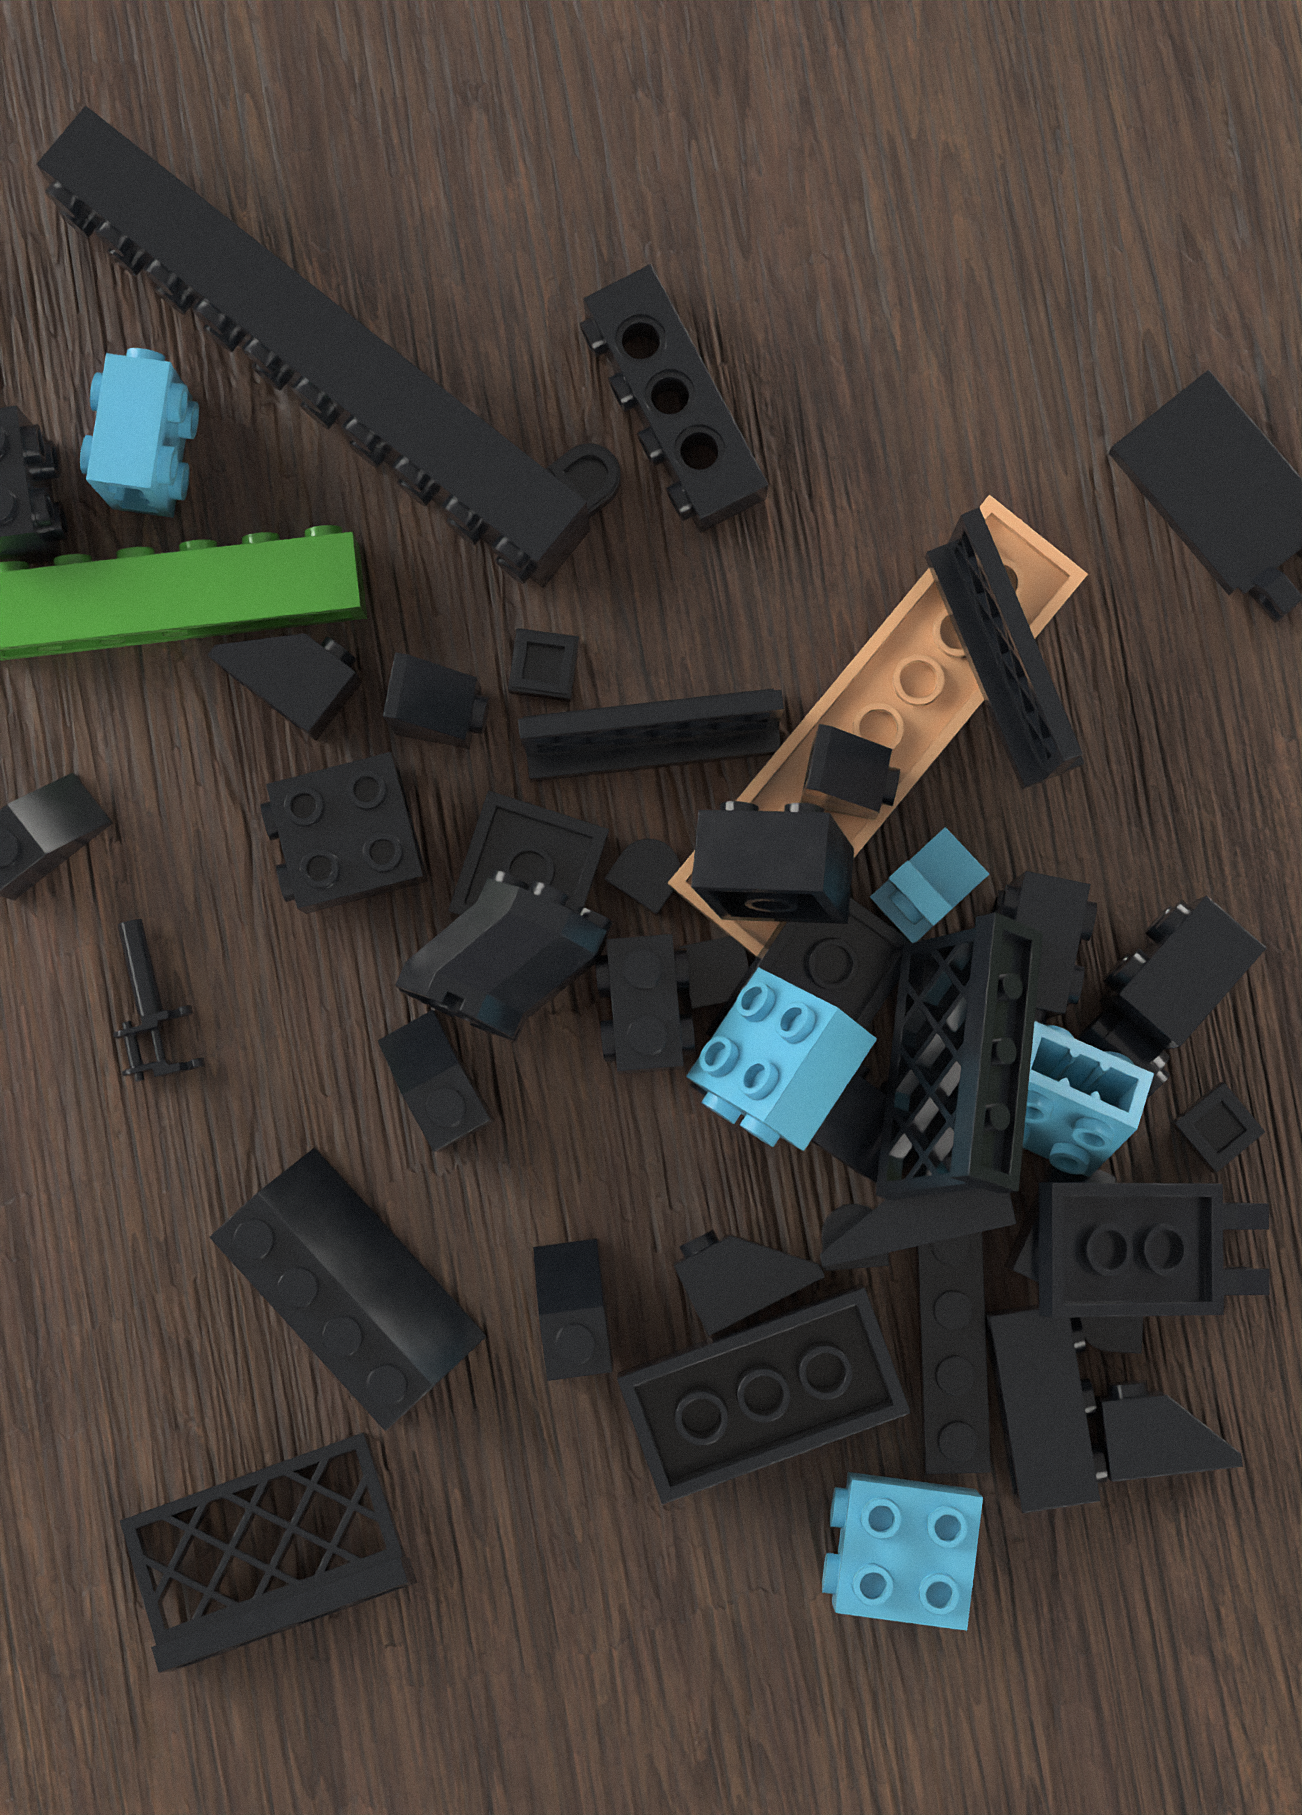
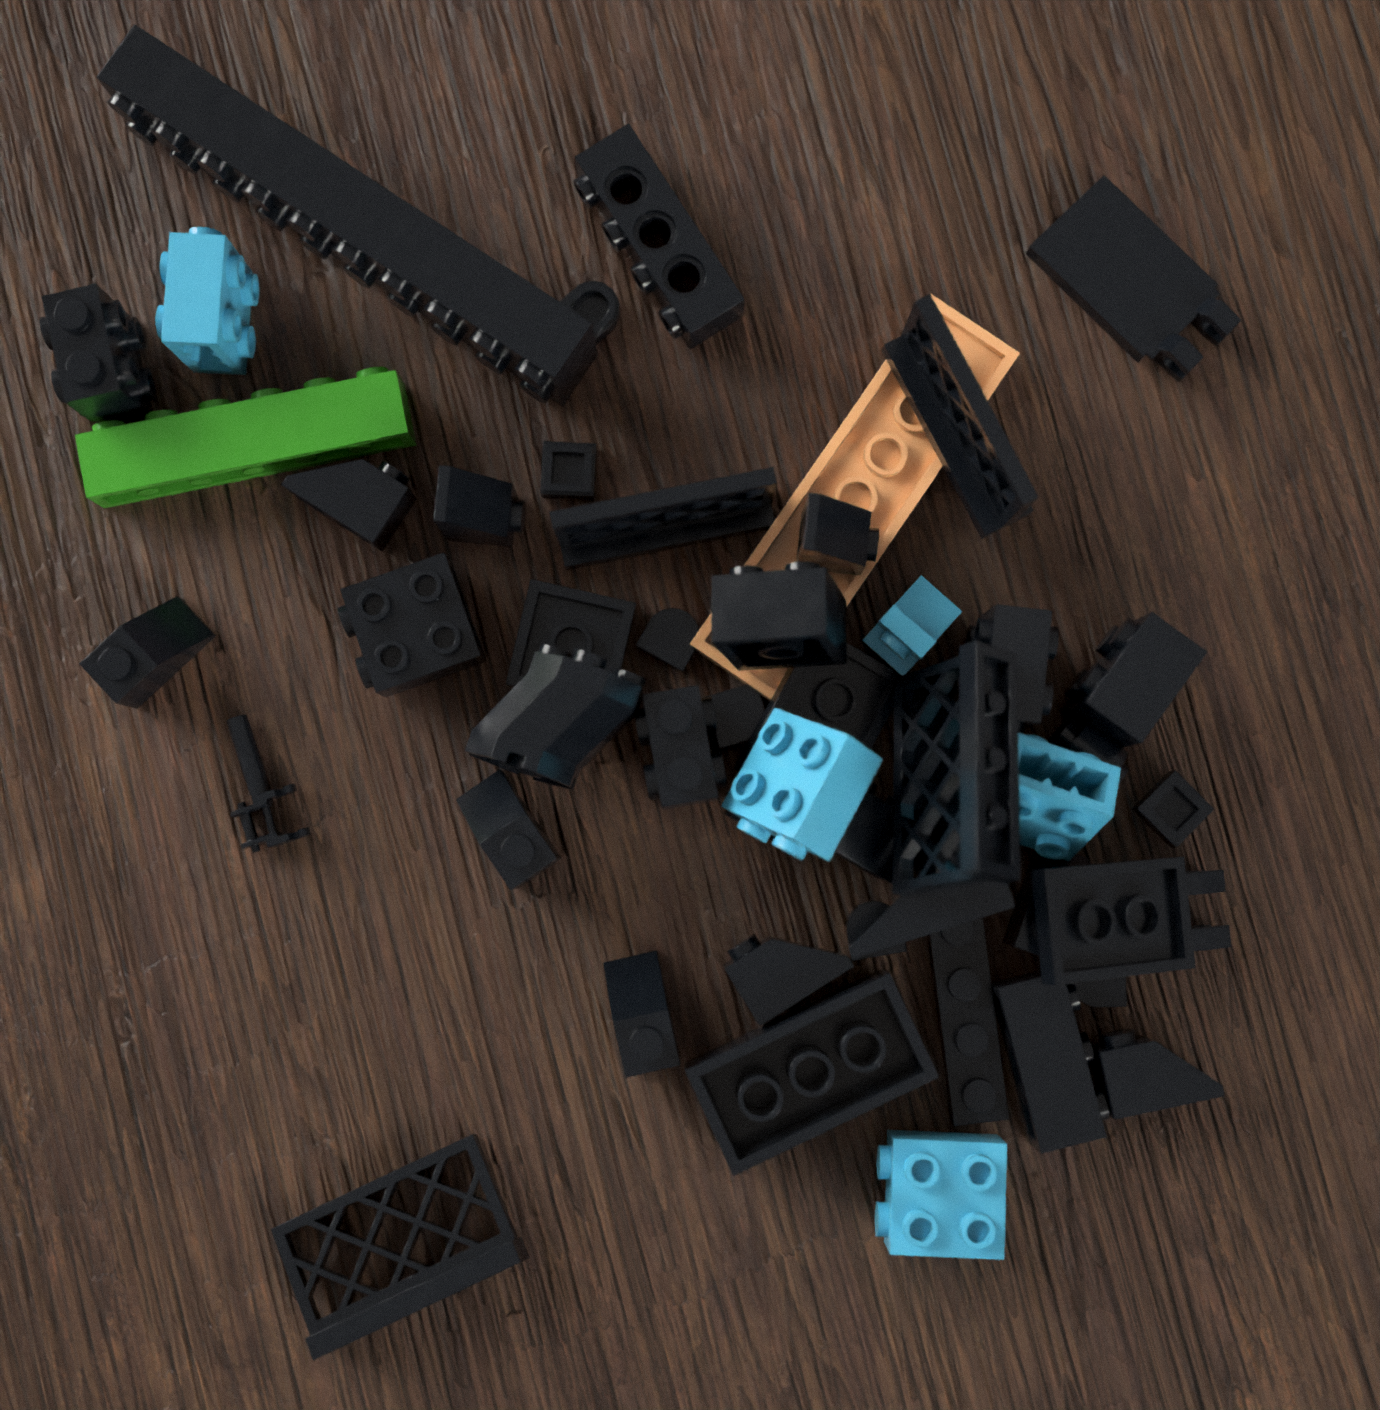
camera: 10 degrees left, 0 degrees up
(348, 1287) = (448, 1012): black slope -> none

